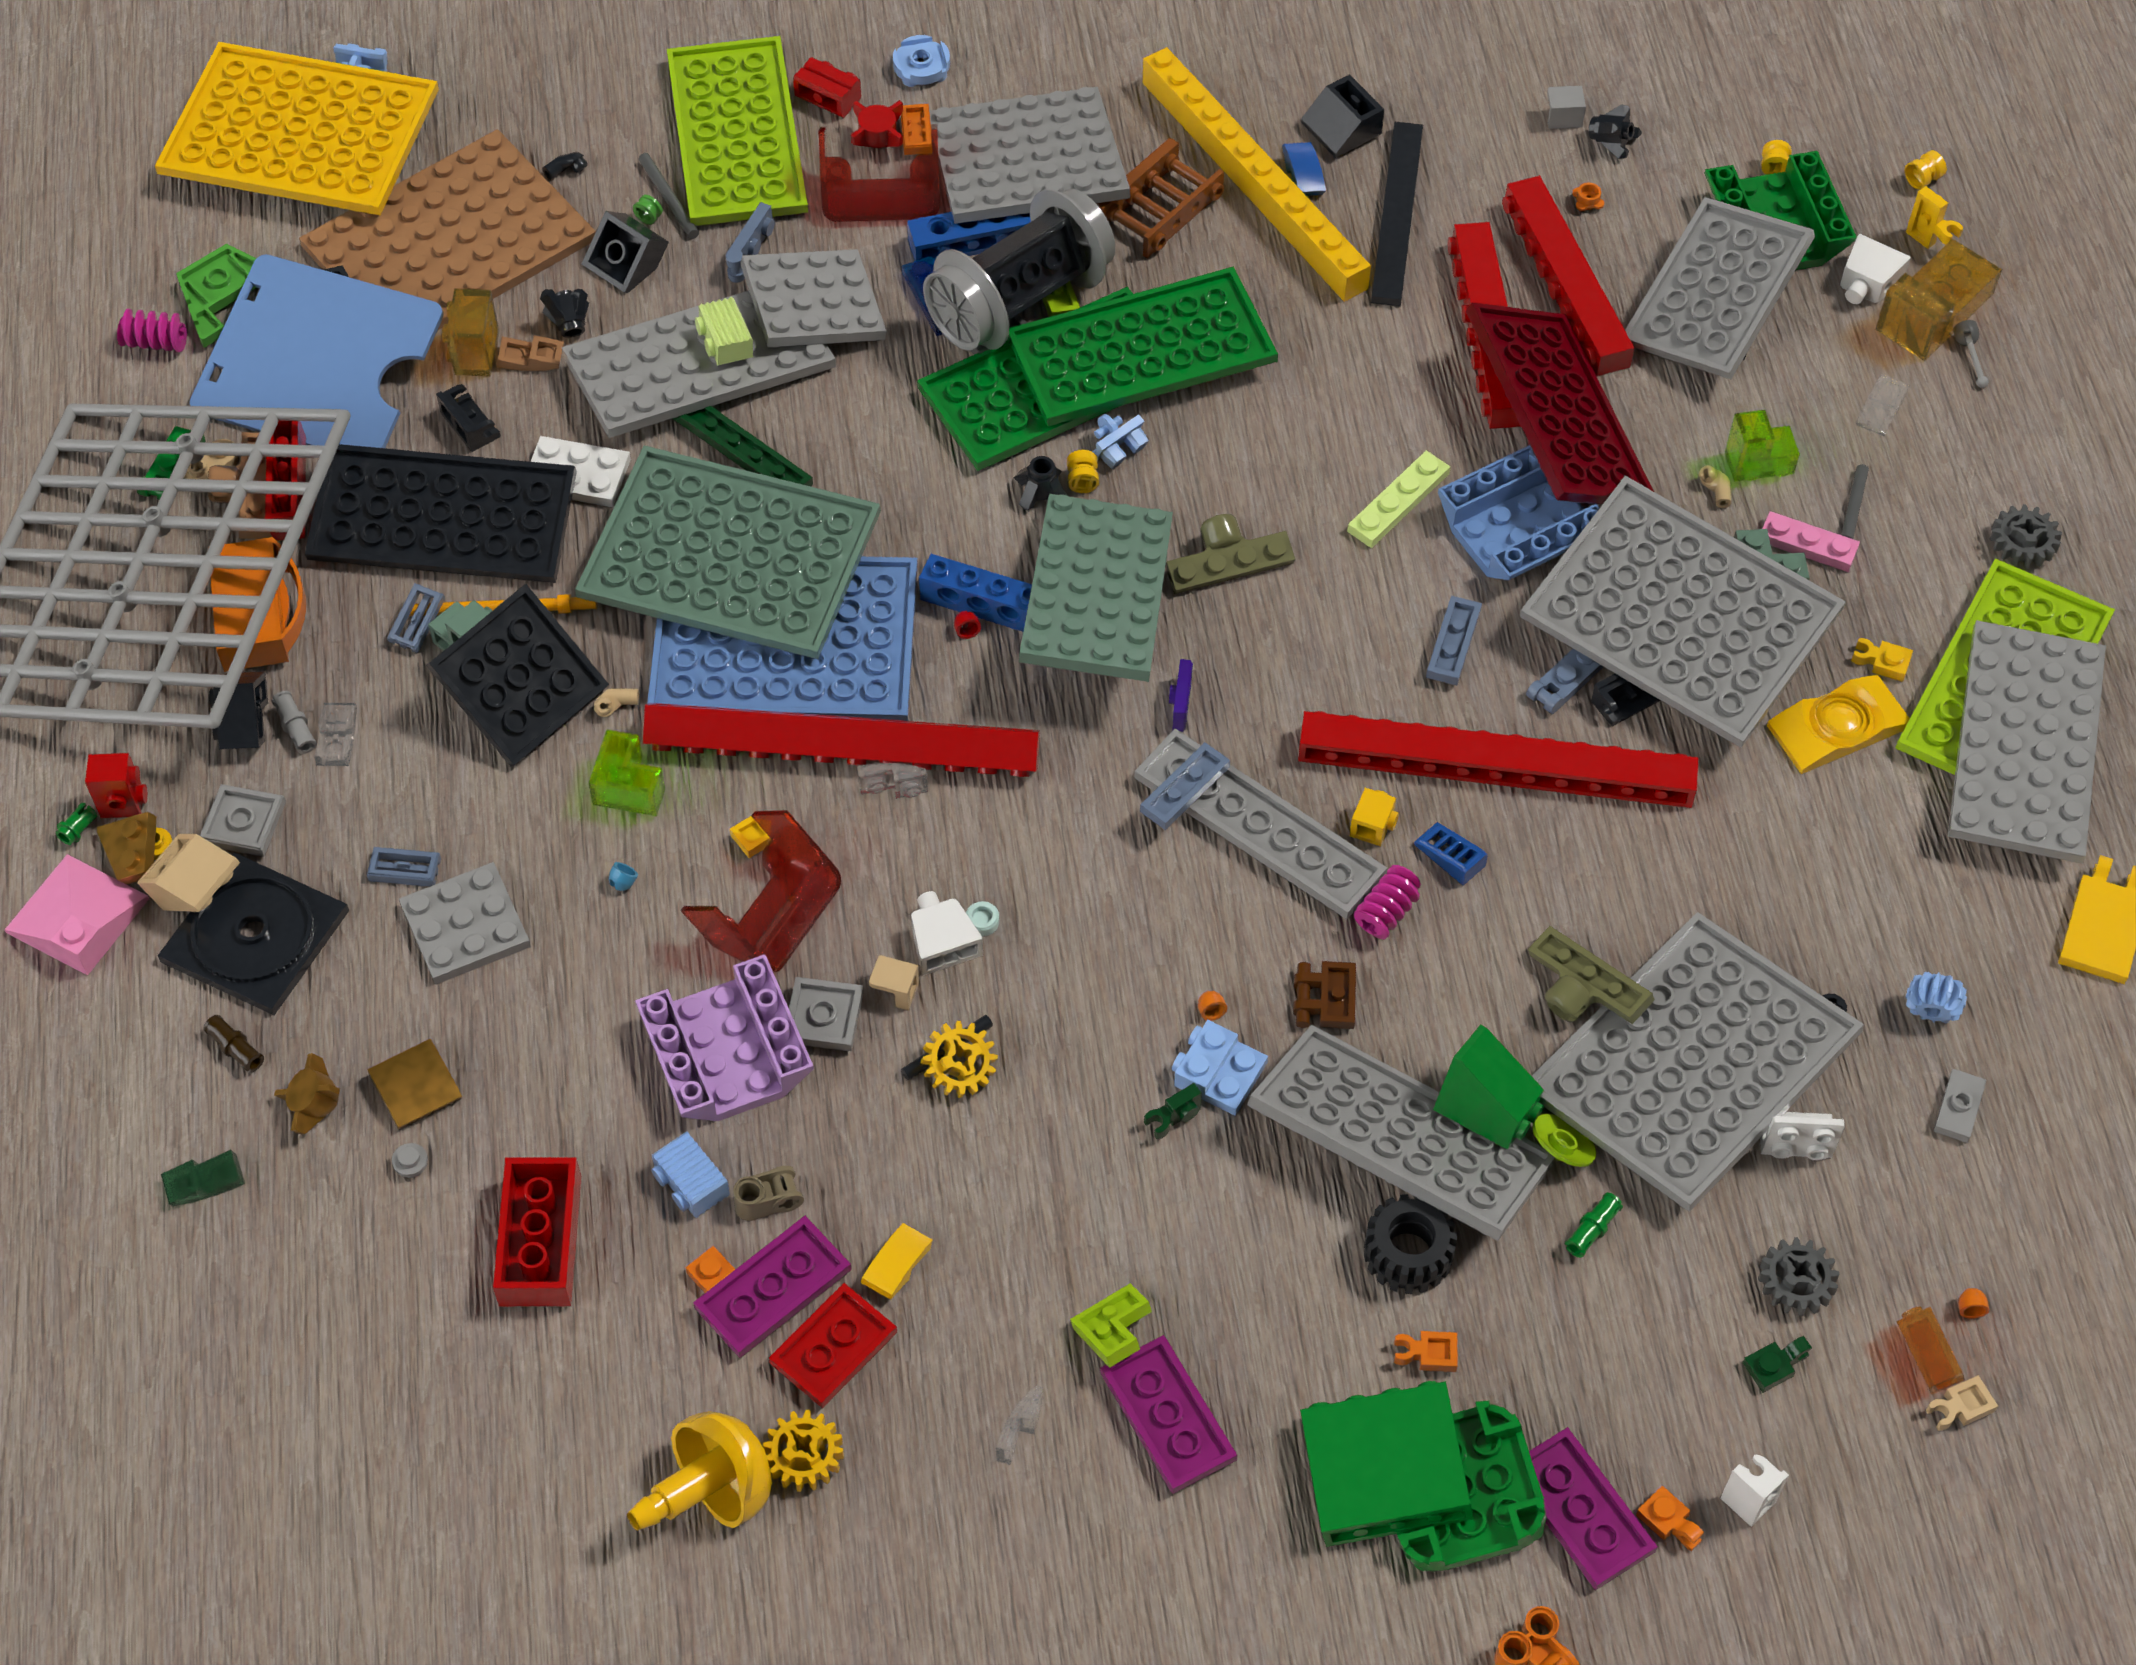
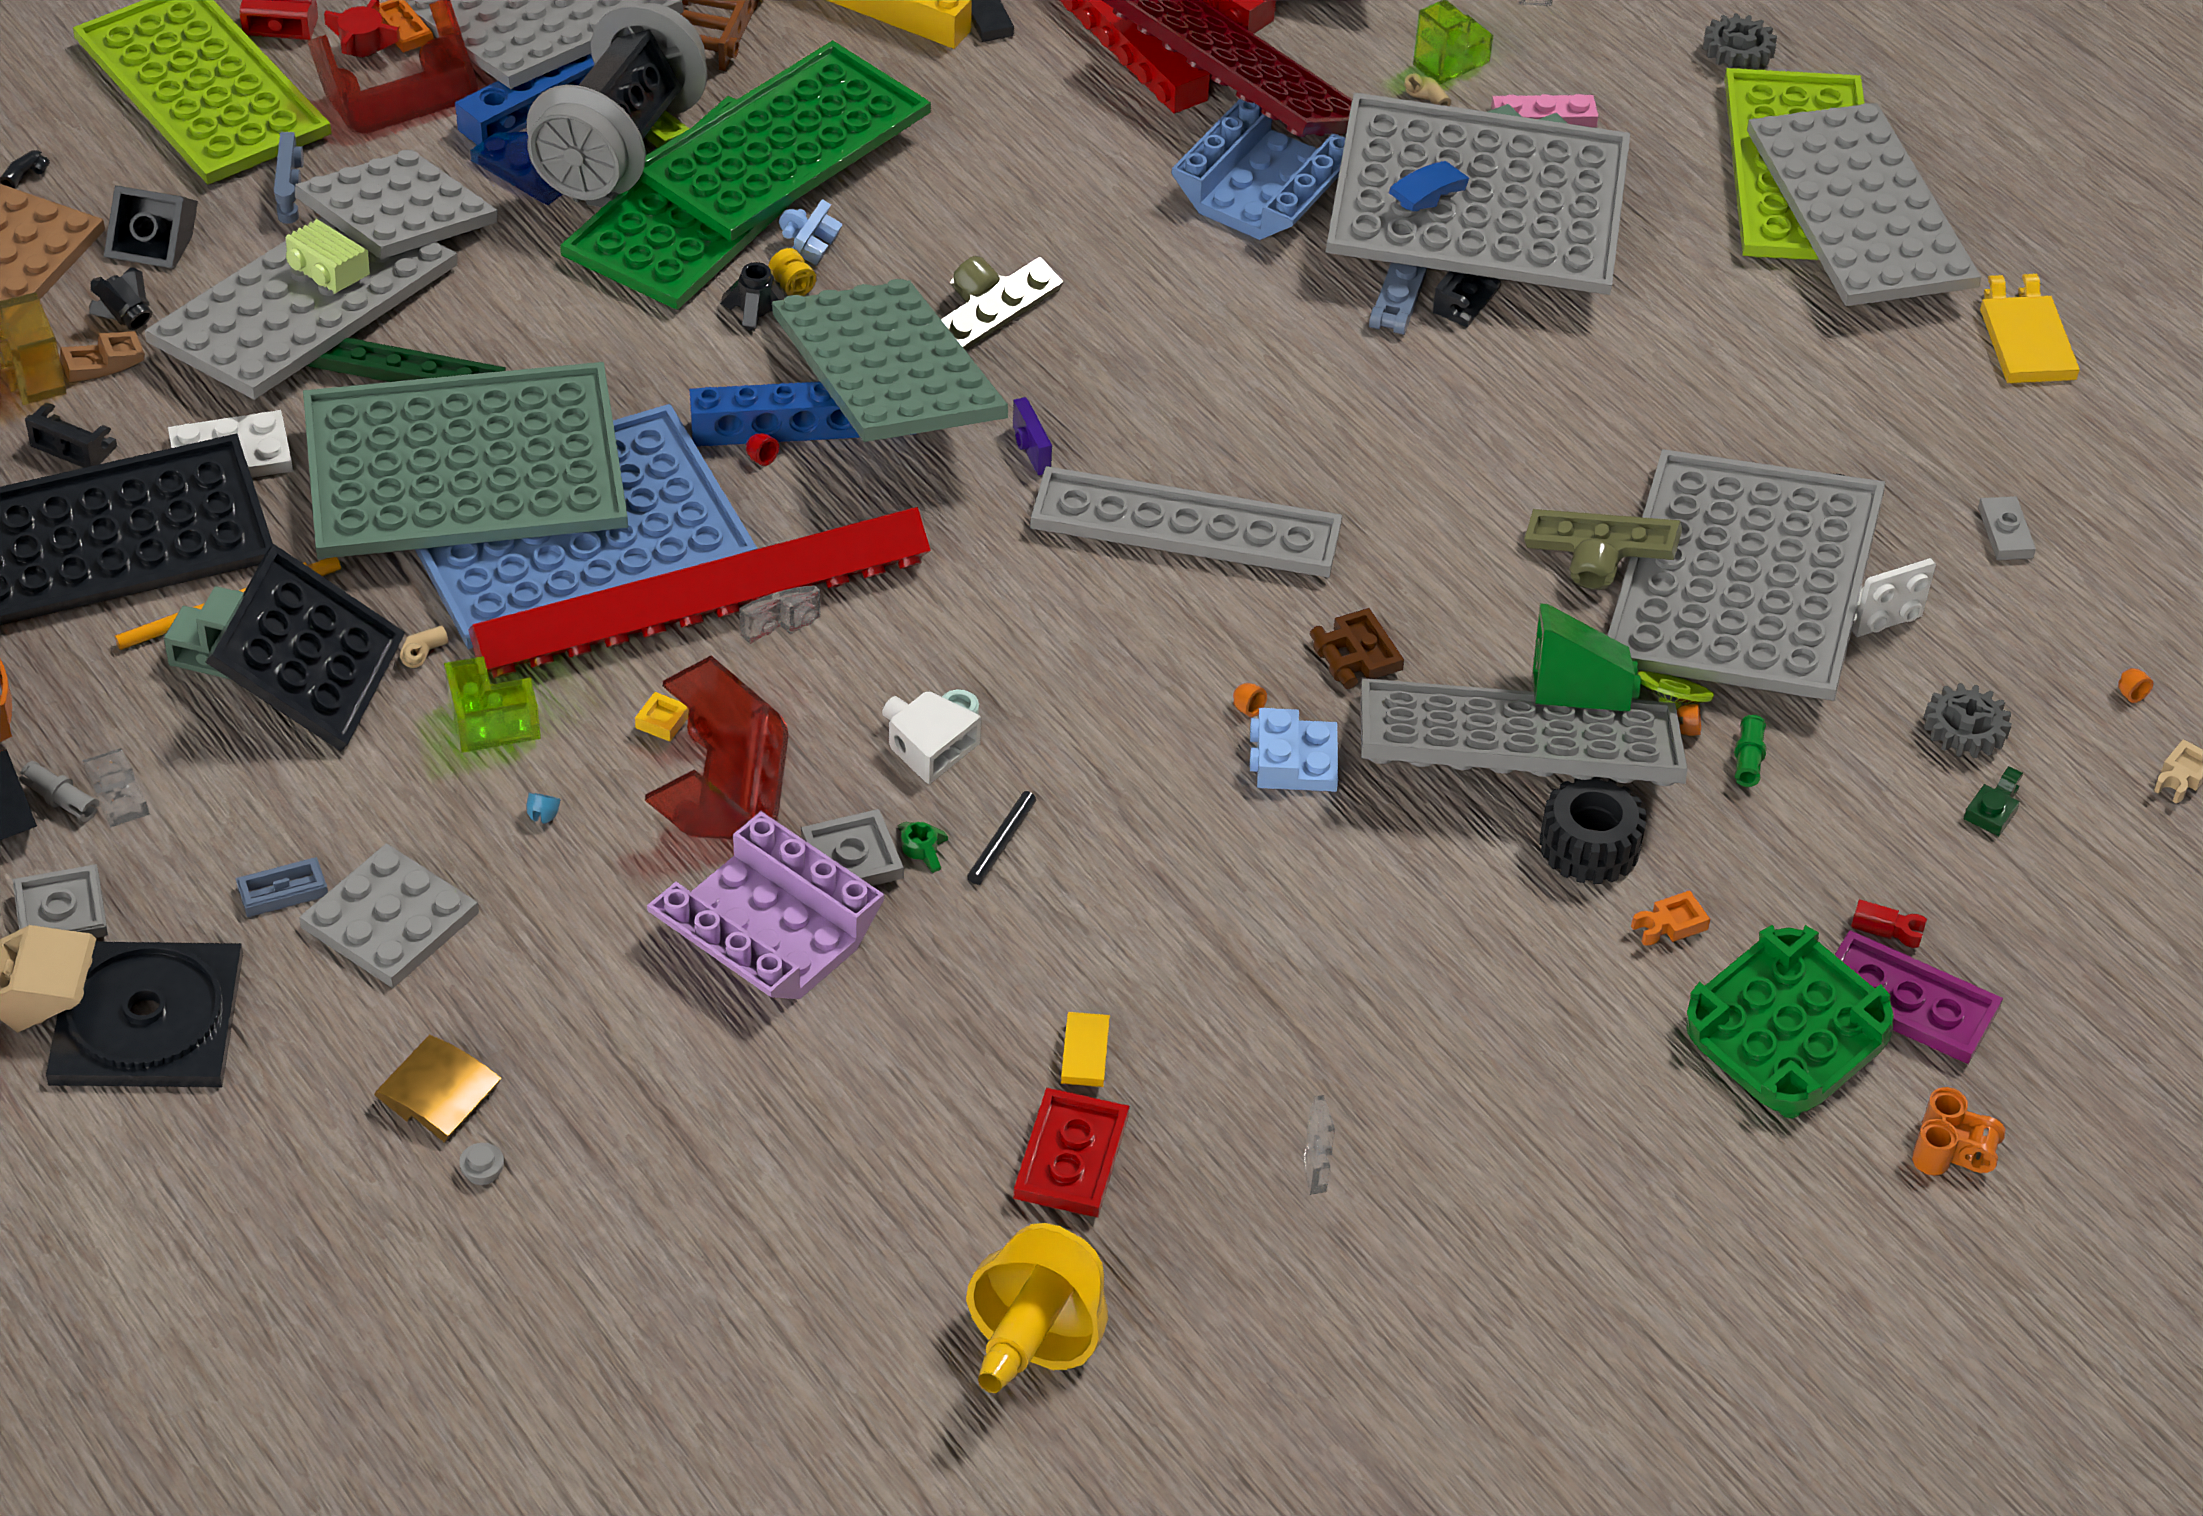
camera: 30 degrees left, 10 degrees down
(201, 1181) = (241, 1282): clear green slope -> none
(233, 1043) = (197, 1127): dark brown pin -> none
(310, 1095) = (327, 1137): pearl gold piece -> none
(423, 630) = (137, 670): sand blue tile -> none
(537, 1231) = (682, 1168): red brick -> none
(647, 209) = (152, 172): bright green bush -> none
(668, 195) = (162, 164): dark grey bar -> none
(690, 1175) = (810, 1053): light blue brick -> none
(709, 1269) = (891, 1138): orange plate -> none
(769, 1193) = (905, 1041): dark tan piece -> none
(772, 1286) = (969, 1124): magenta plate -> none
(800, 1466) = (1124, 1254): yellow gear -> none
(884, 1025) = (920, 842): none -> green piece
(897, 978) = (911, 786): tan panel -> none
(955, 1046) = (1028, 837): yellow gear -> none
(1106, 1322) = (1345, 1016): lime plate -> none
(1169, 1415) = (1458, 1076): magenta plate -> none
(1178, 1107) = (1282, 798): dark green plate -> none
(1185, 786) = (1096, 509): sand blue plate -> none
(1374, 816) = (1297, 476): yellow brick -> none
(1385, 1463) = (1709, 1024): green panel -> none
(1388, 901) = (1364, 543): dark pink piece -> none
(1398, 499) = (1128, 199): yellowish green plate -> none
(1454, 640) = (1269, 300): sand blue plate -> none
(1461, 872) = (1403, 486): blue slope -> none
(1498, 759) = (1379, 387): red brick -> none
(1561, 1175) = (1691, 719): none -> orange hinge
(1608, 1432) = (1888, 923): none -> red bar
(1626, 590) = (1426, 185): none -> blue slope
(1668, 1515) = (1992, 973): orange plate -> none
(1751, 1494) = (2058, 909): white hinge -> none
(1838, 722) = (1676, 252): yellow slope -> none
(1855, 501) = (1563, 63): dark grey bar -> none
(1887, 659) = (1682, 184): yellow plate -> none
(1930, 1349) = (2128, 733): clear orange brick -> none
(1936, 997) = (1929, 440): light blue gear -> none

